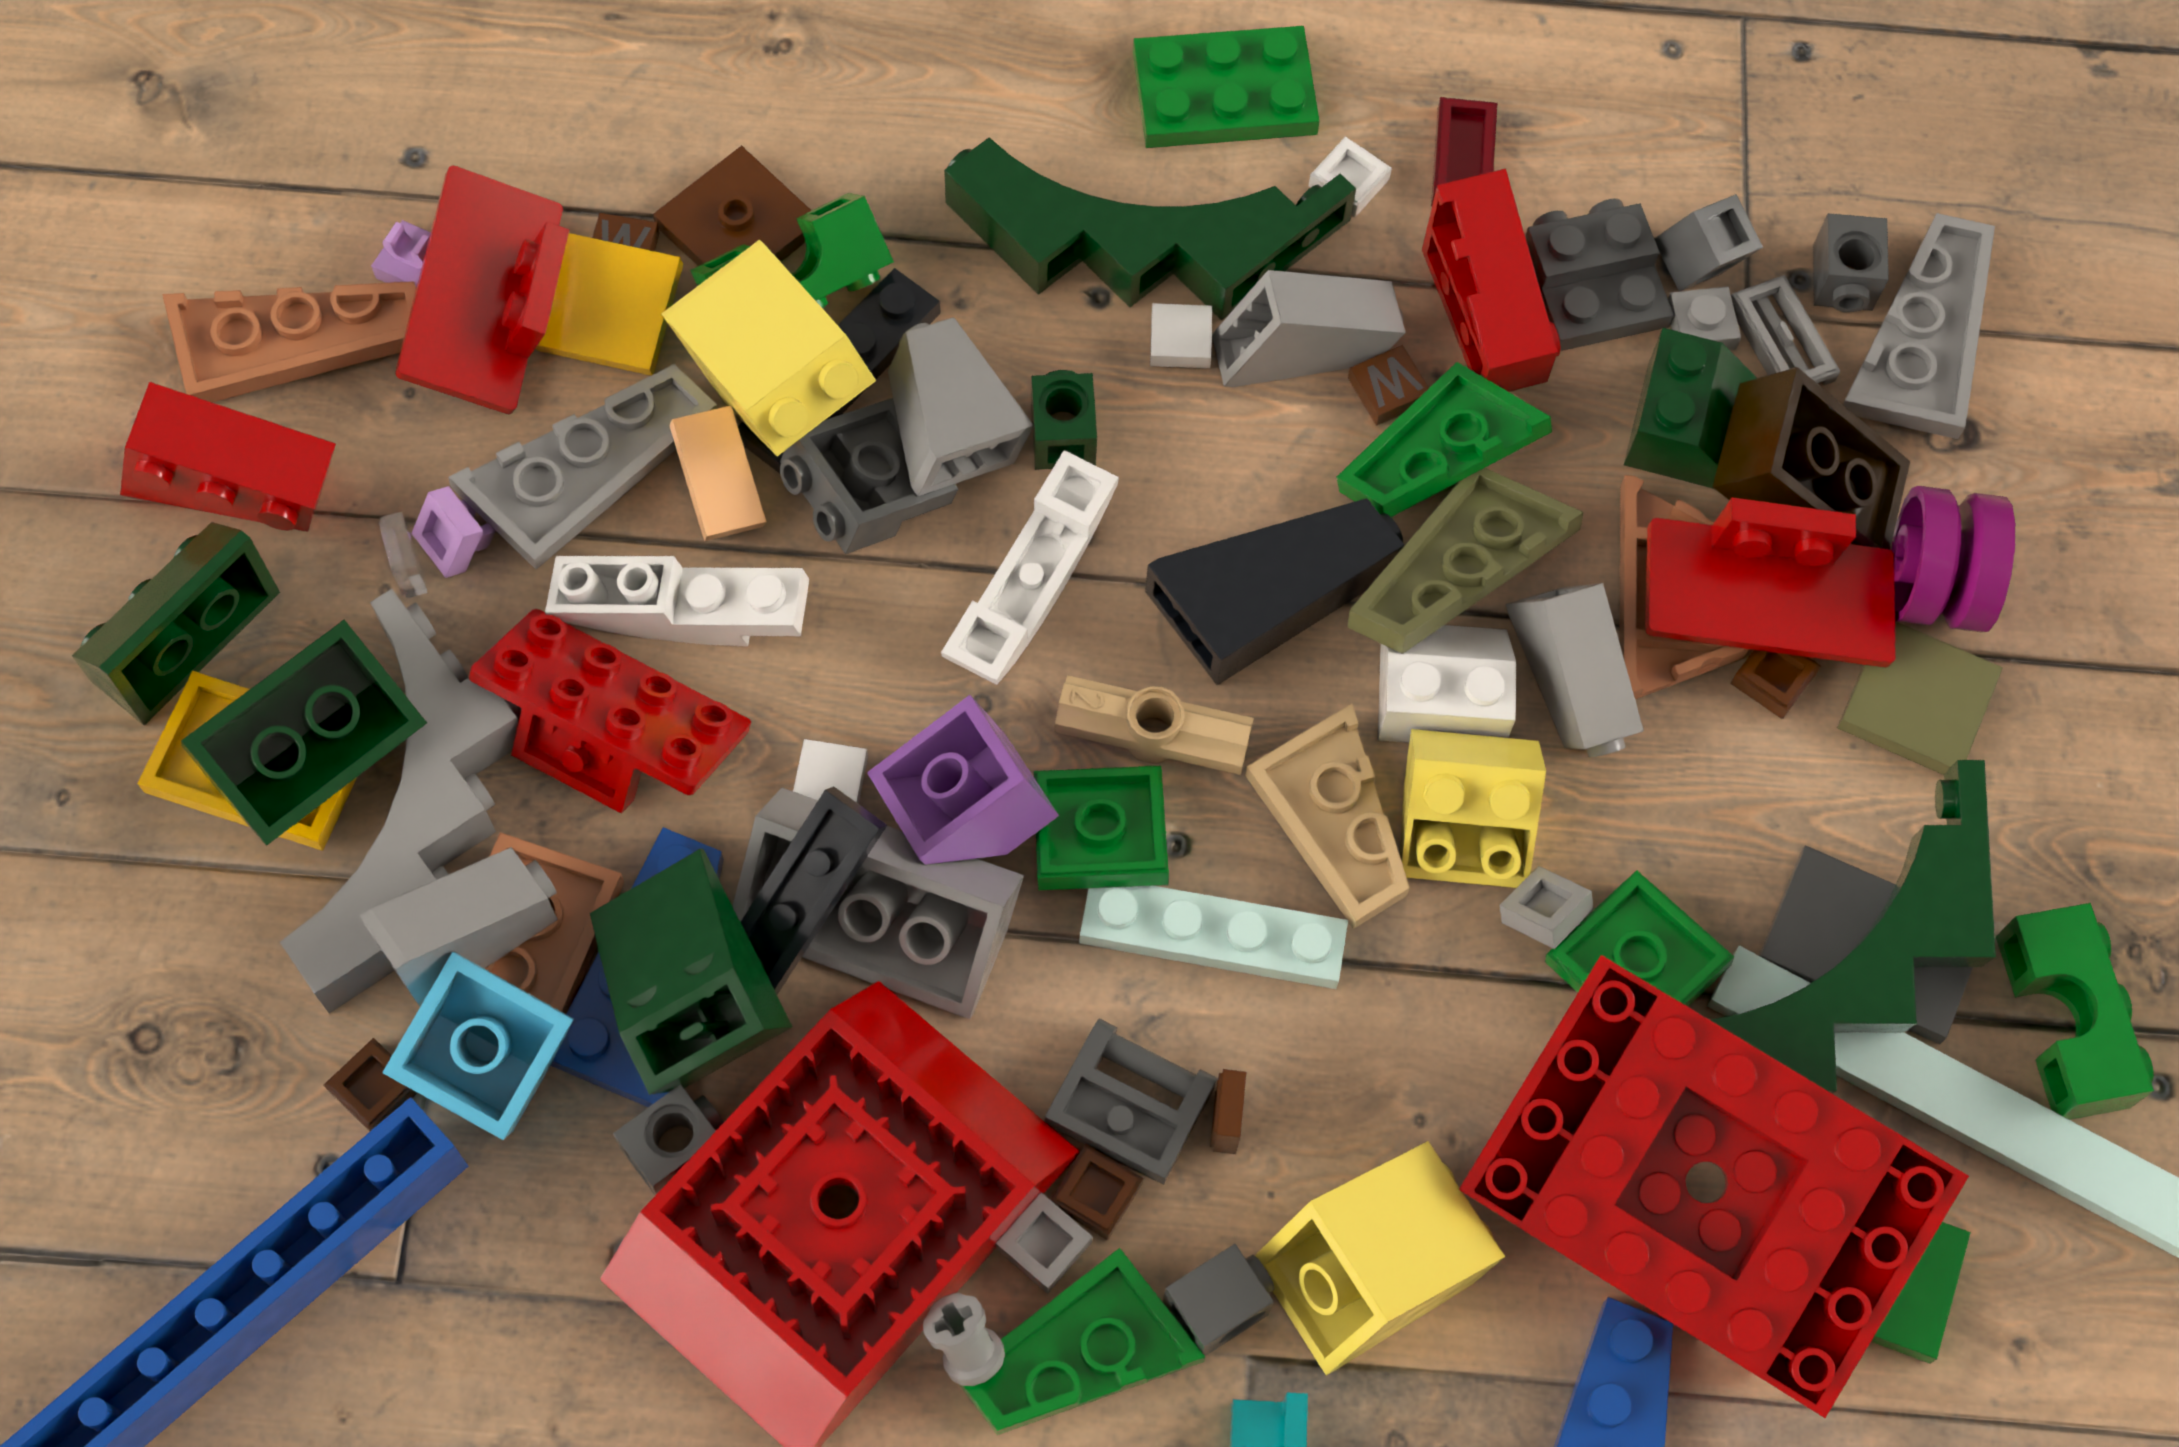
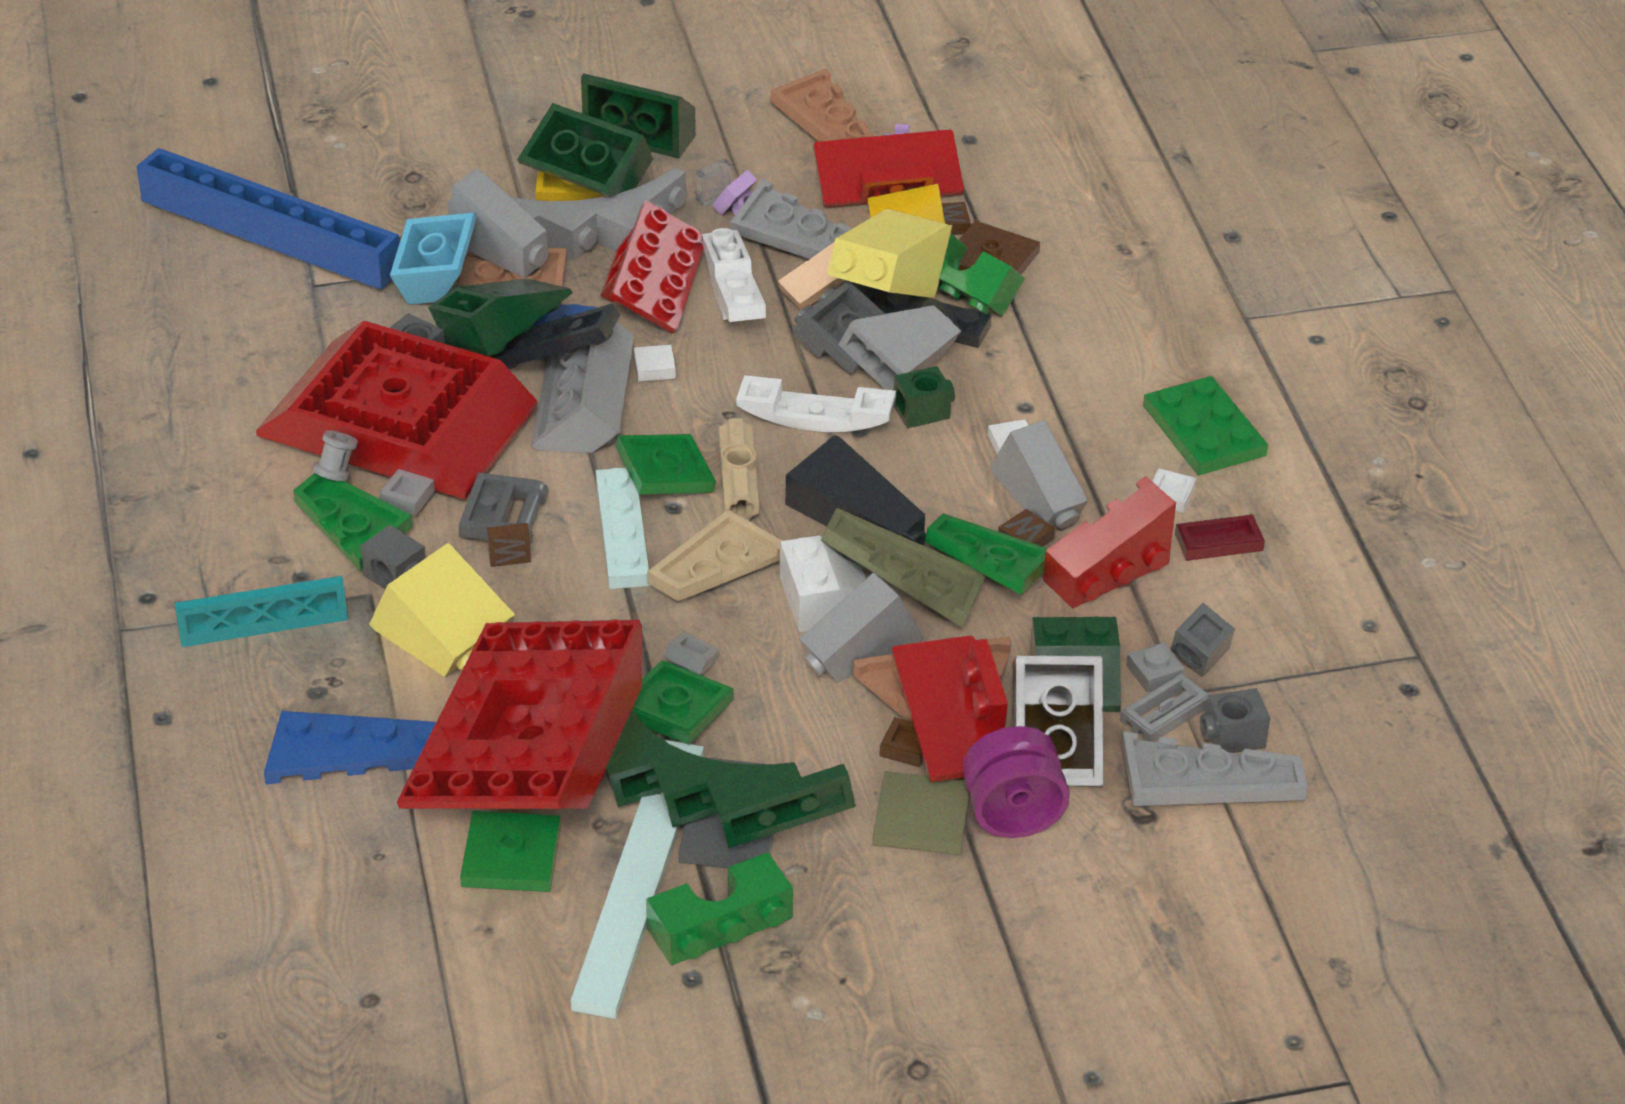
camera: 75 degrees right, 25 degrees down
(223, 461) = (734, 105): red wedge -> none
(962, 789) = (660, 396): medium lavender slope -> none
(1097, 1191) = (443, 512): reddish brown tile -> none
(1135, 247) = (1089, 443): dark green arch -> none
(1470, 808) = (745, 606): light yellow slope -> none
(1598, 273) = (1155, 603): dark grey plate -> none

